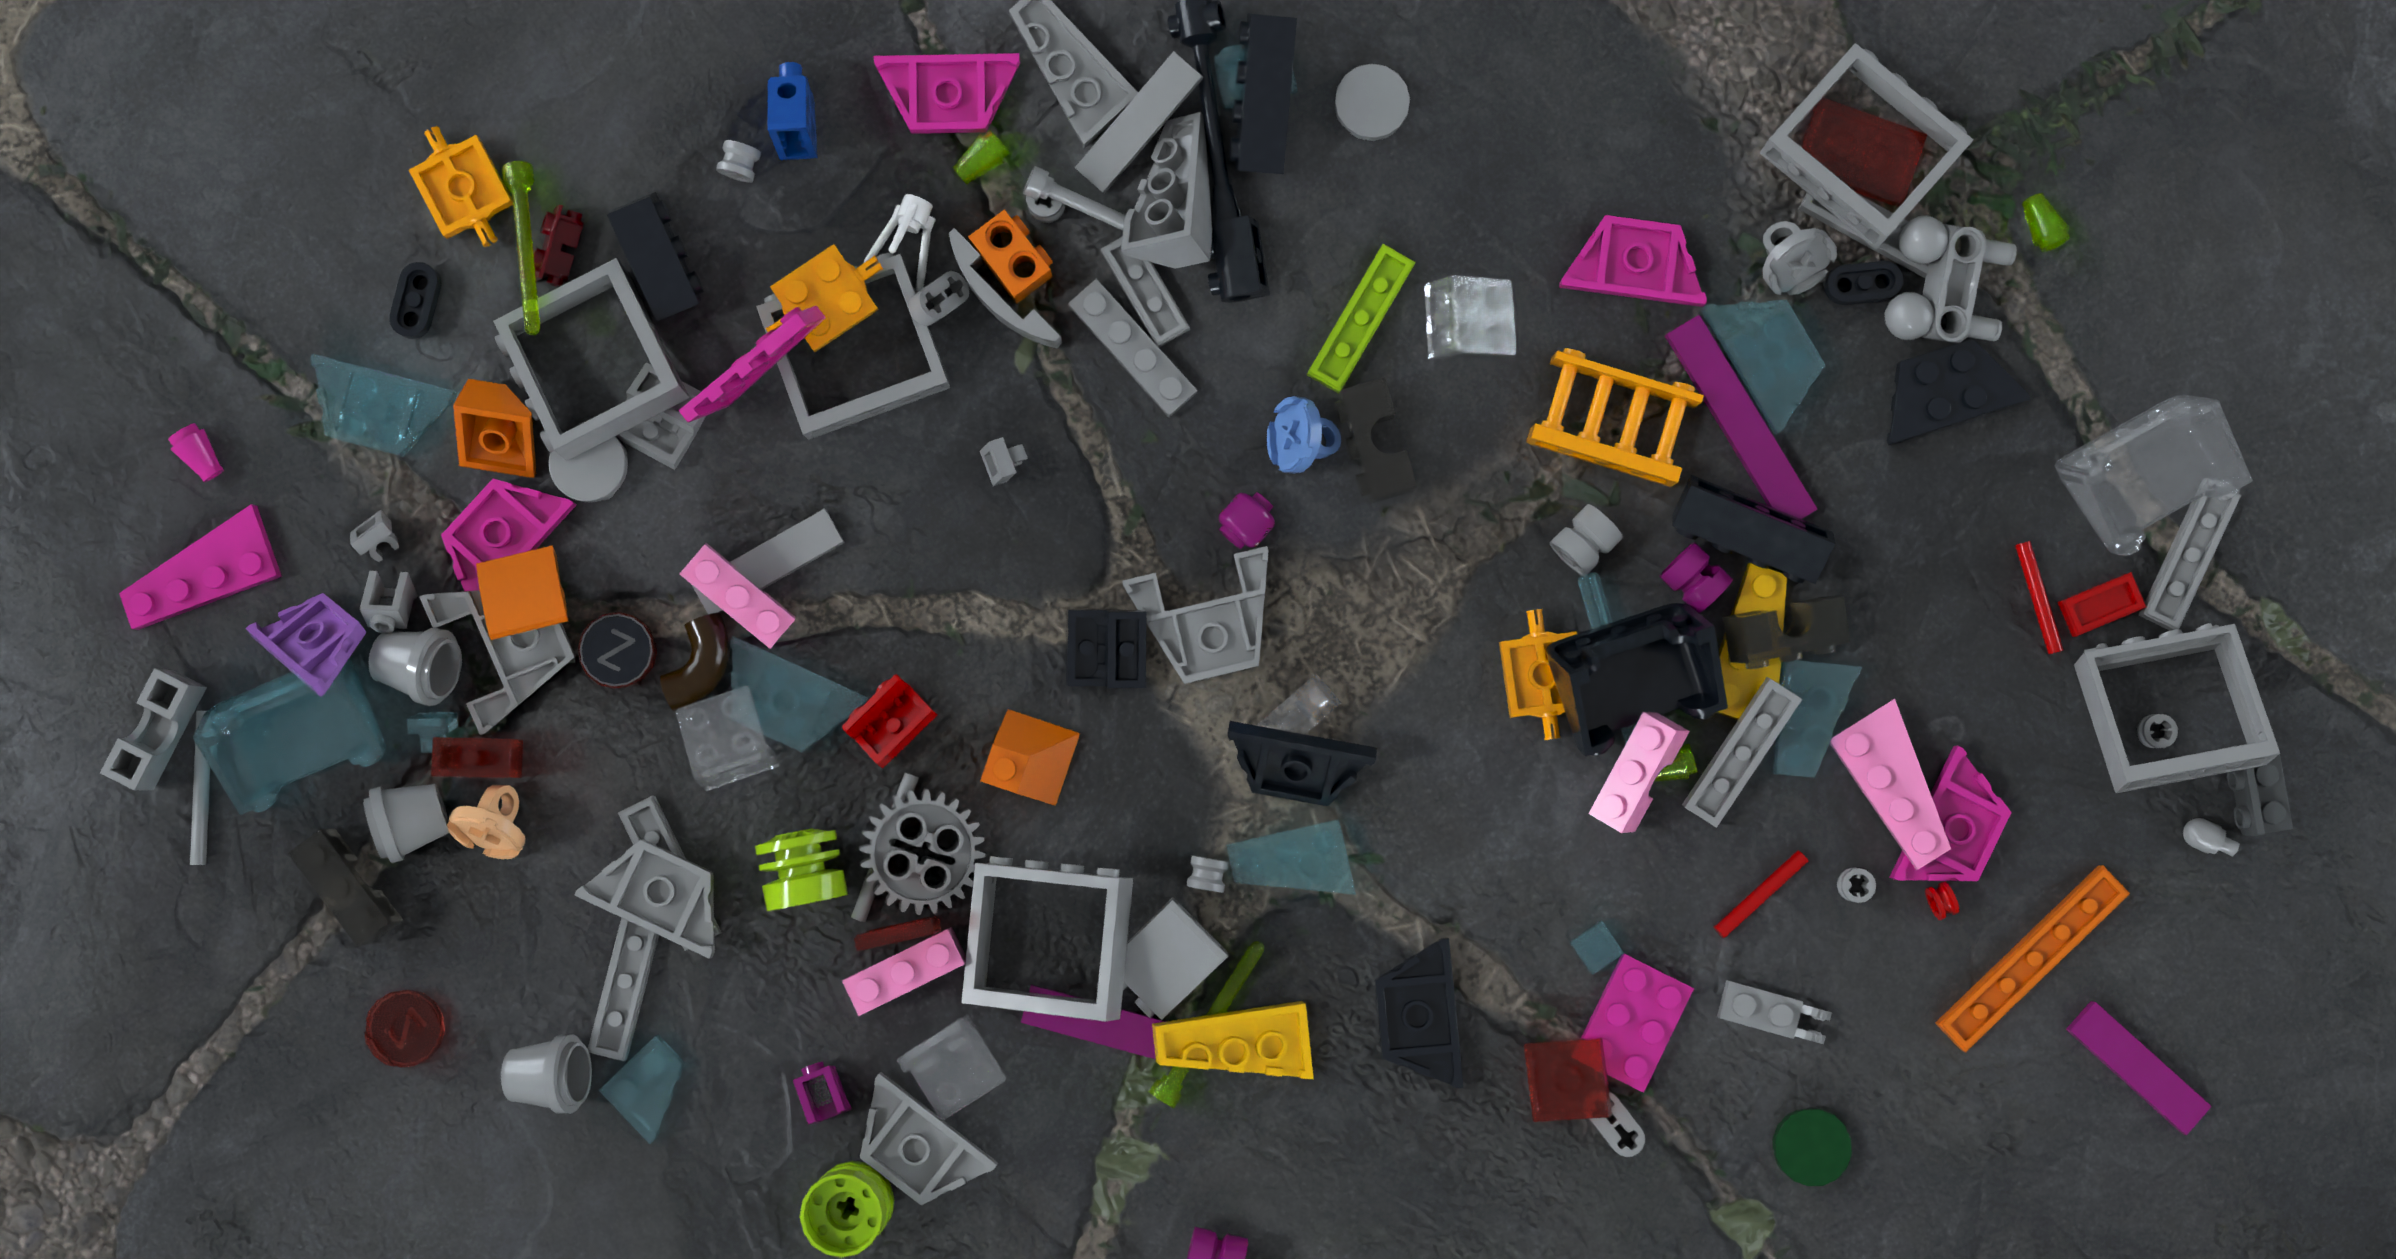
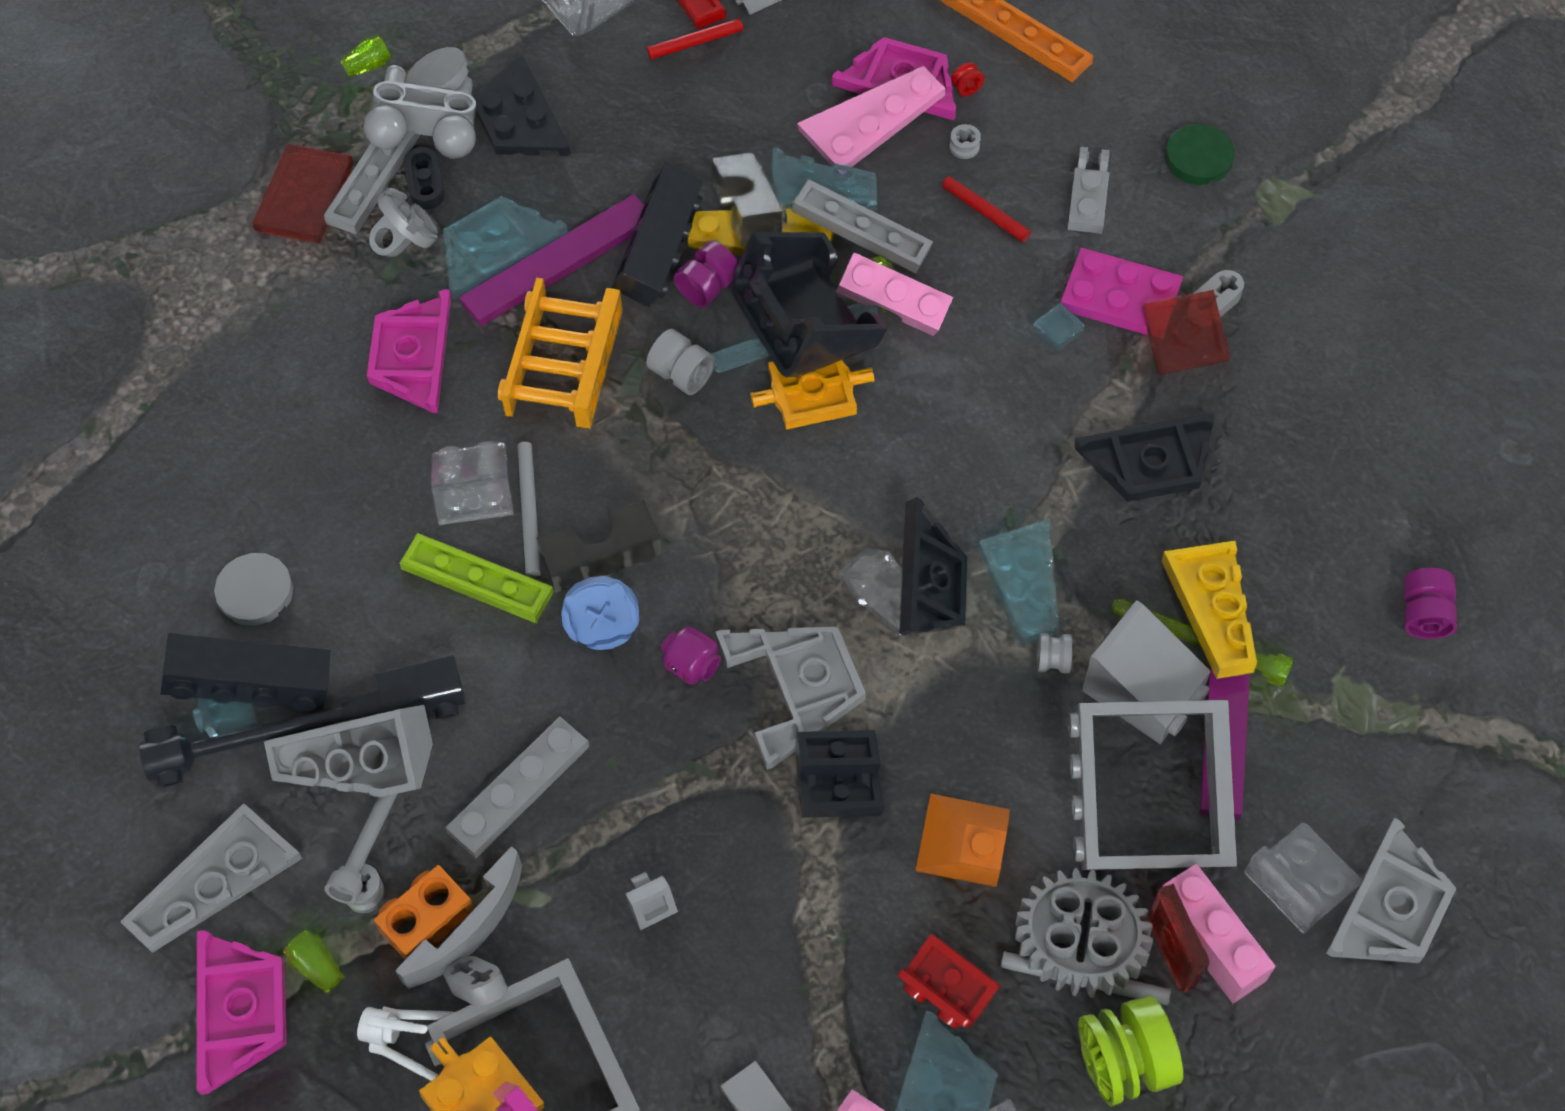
camera: 90 degrees left, 25 degrees down
(821, 1093) = (1363, 1007): magenta window -> none
(826, 1213) = (1499, 945): lime wheel -> none
(1139, 122) = (275, 800): light grey tile -> none
(1147, 294) = (454, 781): light grey tile -> none
(1435, 374) = (528, 510): none -> light grey bar
(1832, 191) = (330, 208): light grey window -> none
(2008, 301) = (440, 69): none -> light grey tile

